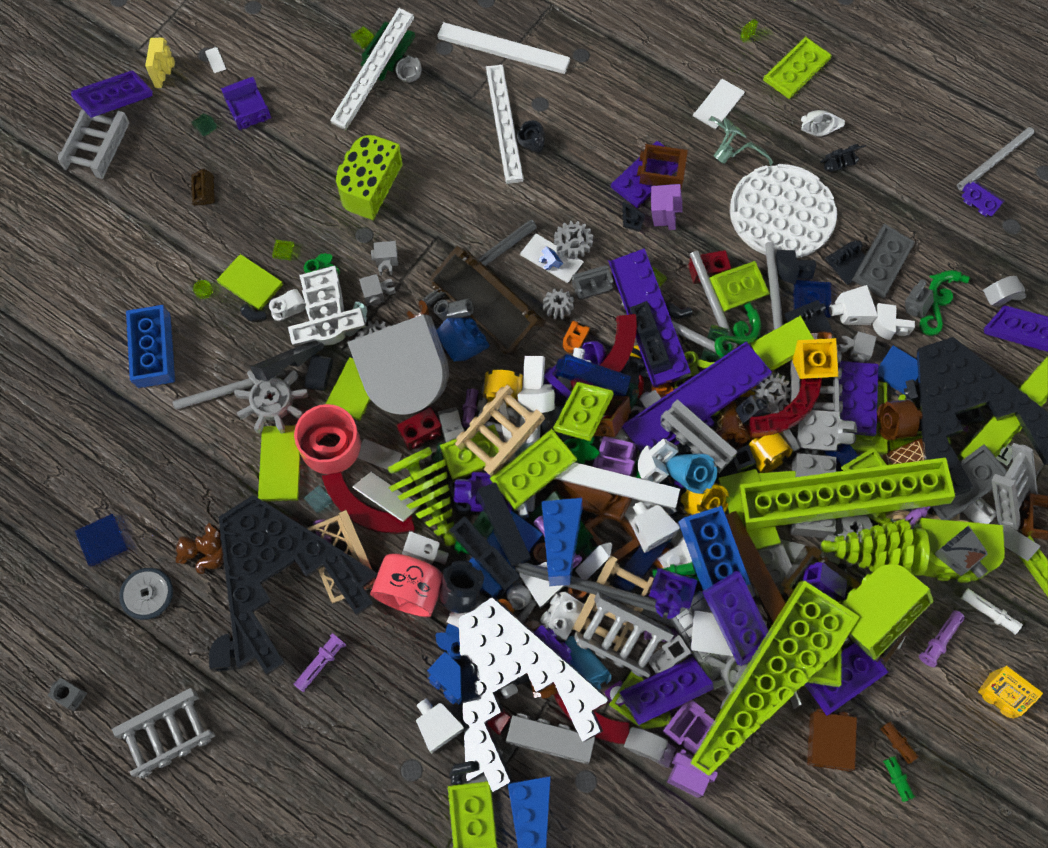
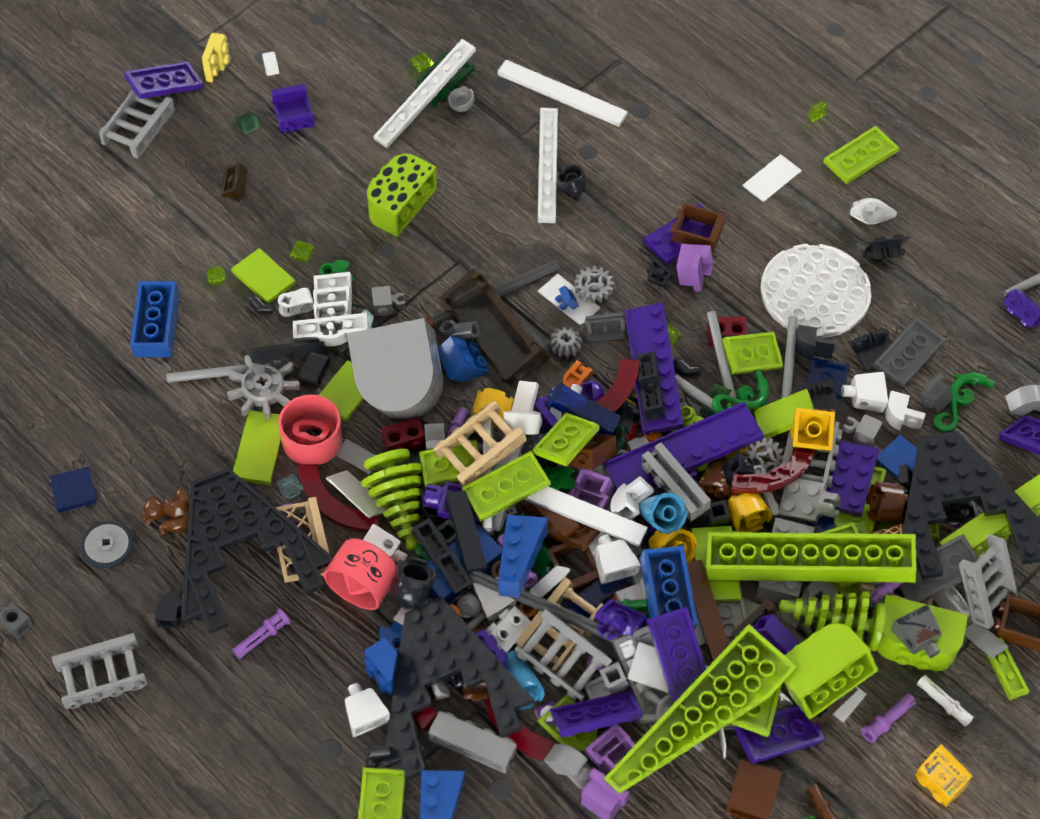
camera: 10 degrees right, 10 degrees down
(385, 256) = (402, 271): light grey brick -> none
(725, 149) = (767, 222): sand green plant -> none

